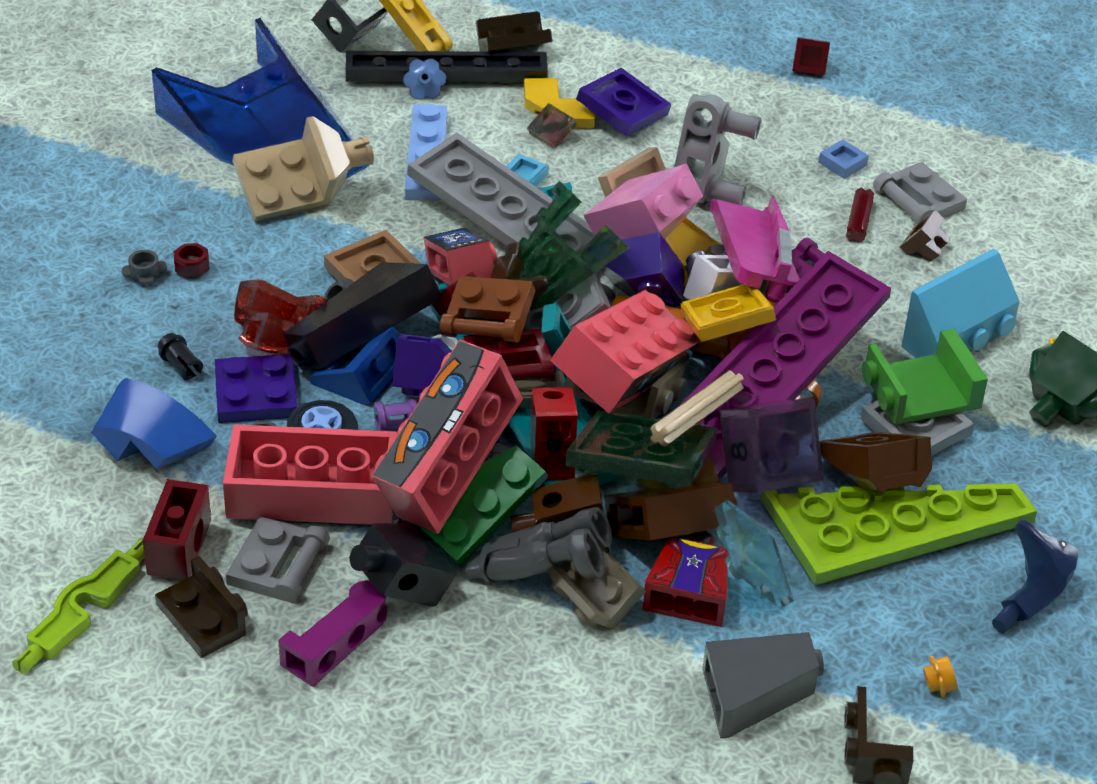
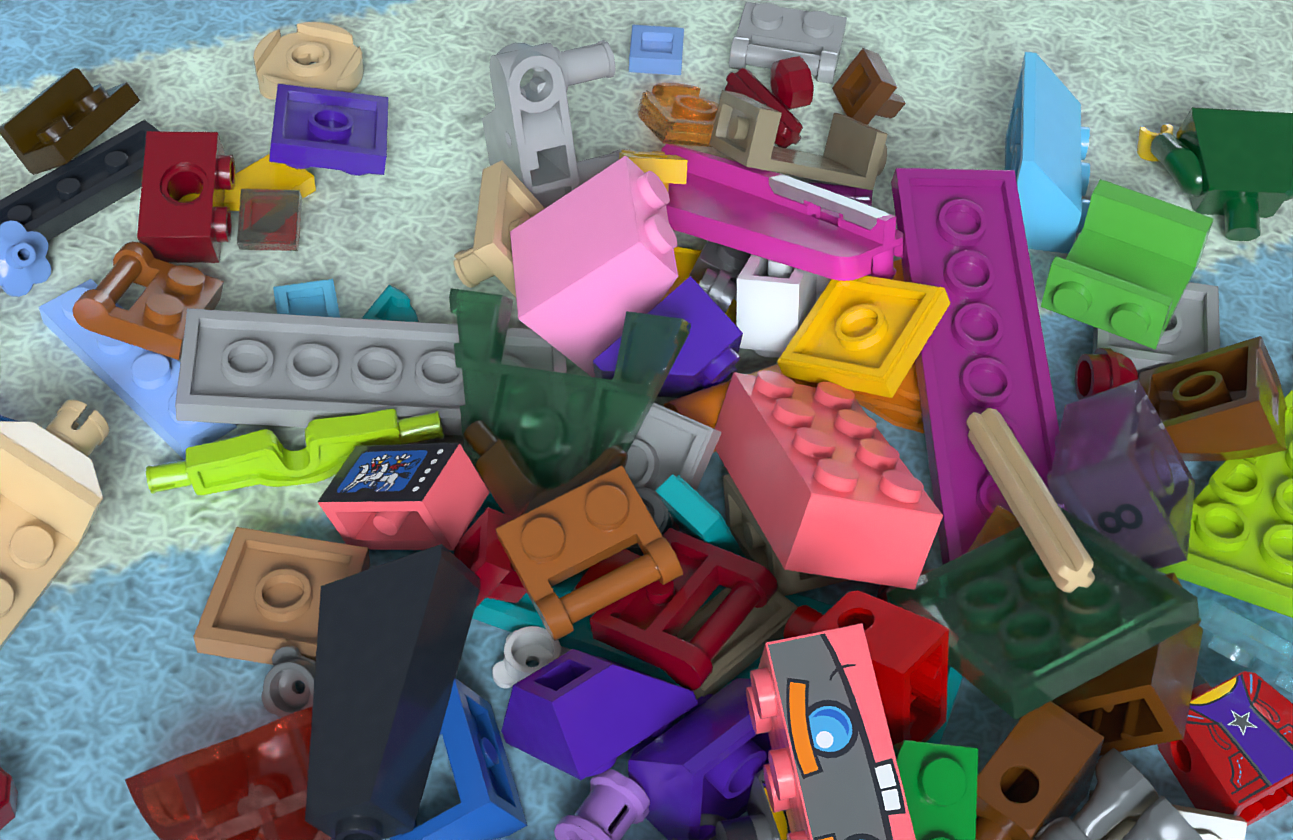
camera: 45 degrees left, 5 degrees up
(427, 213) = (263, 460): none -> lime piece
(472, 125) = (160, 313): none -> dark orange plate
(518, 92) = (174, 168): none -> dark red brick
(658, 69) = (288, 59): none -> tan plate
(733, 195) = (667, 167): none -> yellow plate
(798, 218) = (748, 134): none -> dark tan panel
(809, 195) = (678, 114): none -> clear orange tile
(852, 420) = (1102, 372): none -> dark red plate
(886, 210) = (792, 82): none -> dark red tile

